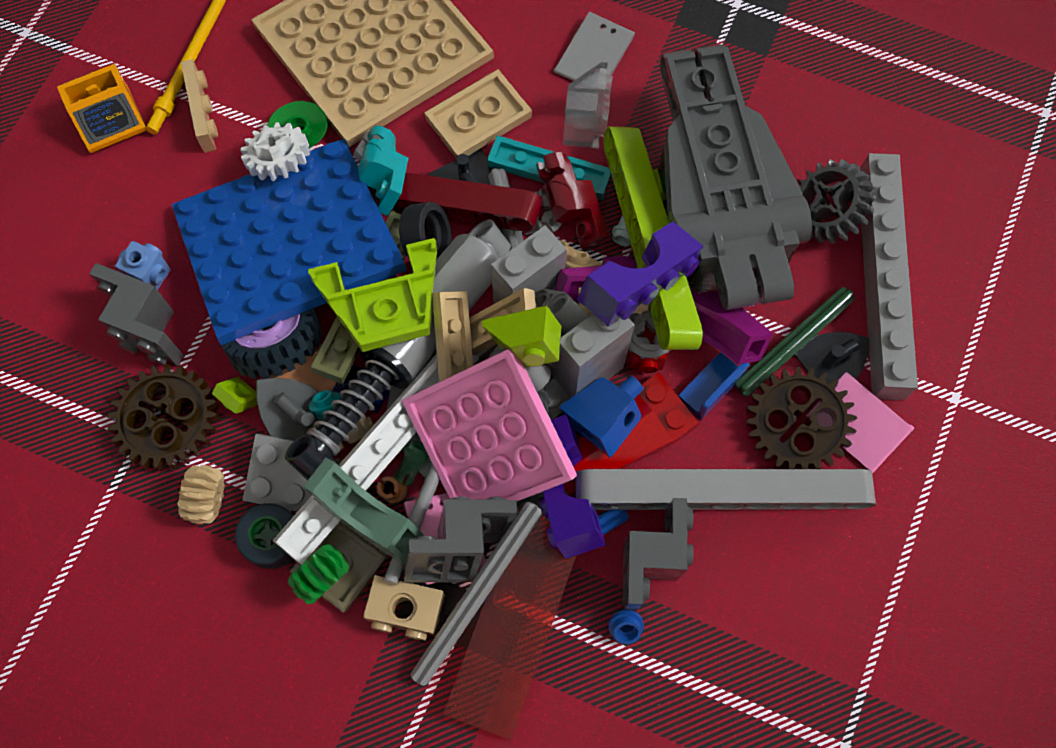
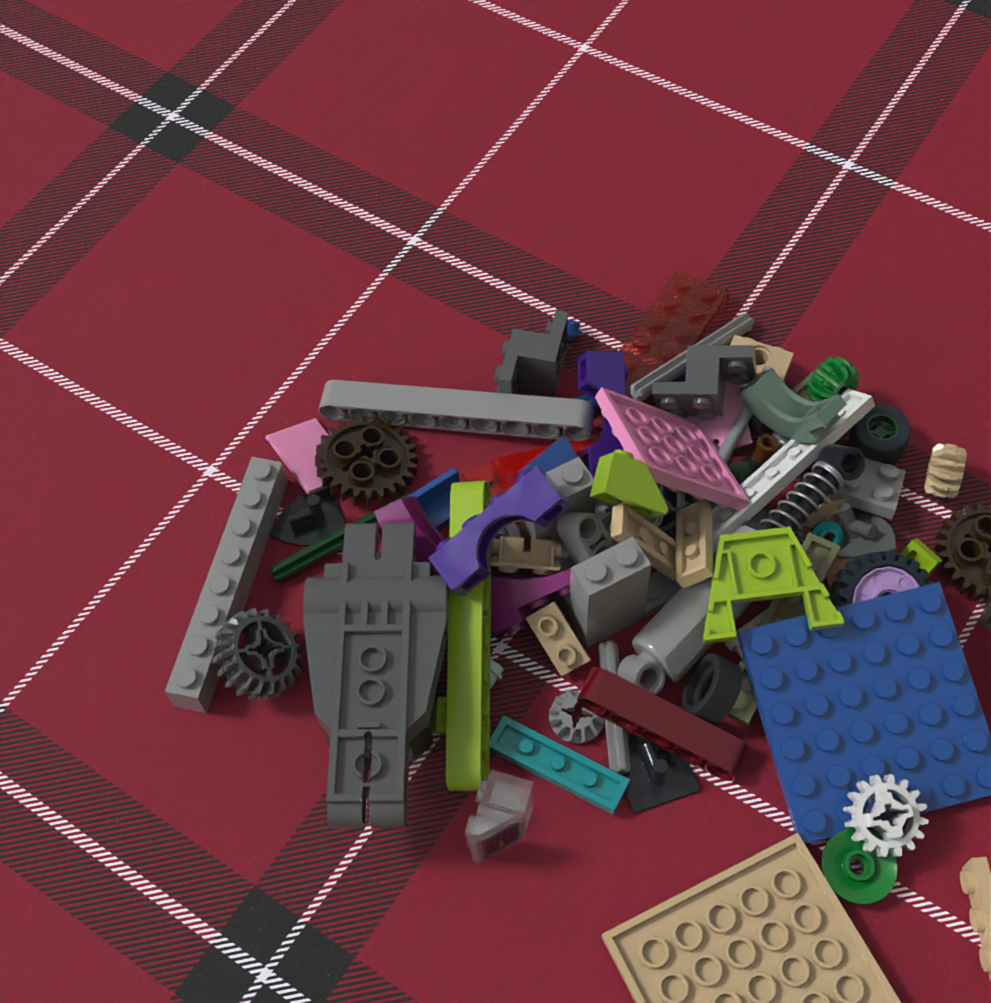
camera: 165 degrees left, 10 degrees down
(381, 166) = (757, 780): teal plate -> none
(478, 114) = (632, 849): tan plate -> none
(572, 199) = (542, 706): dark red plate -> none
(594, 45) = (470, 922): light grey container -> none

